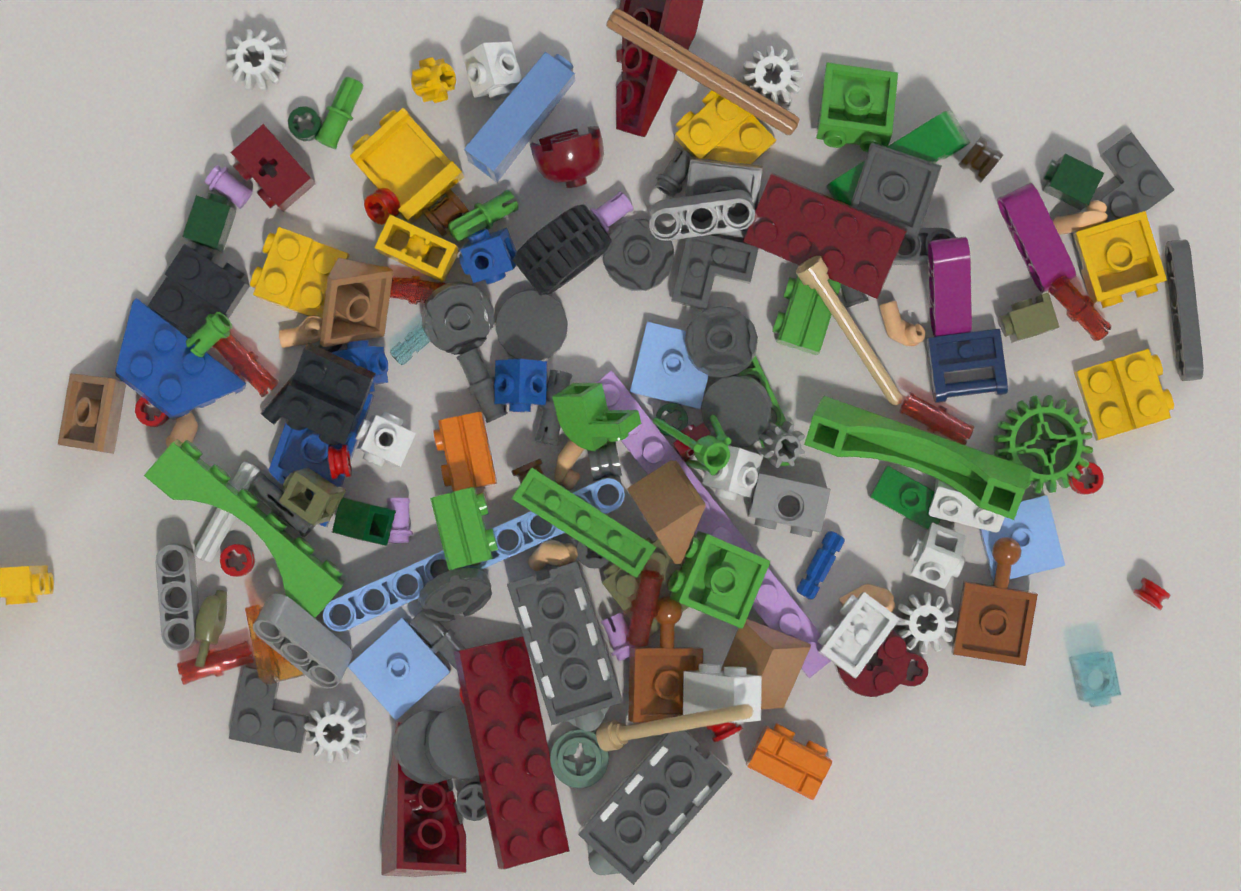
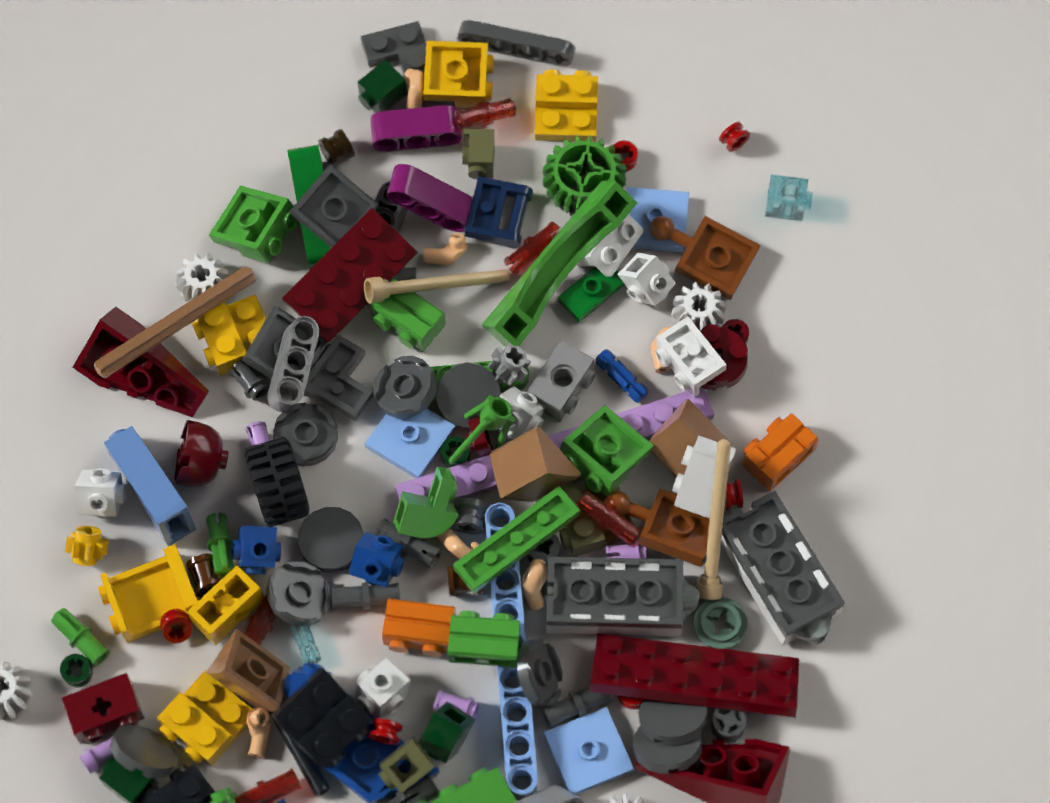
camera: 65 degrees left, 20 degrees down
(238, 227) = (143, 749): none -> dark grey tile

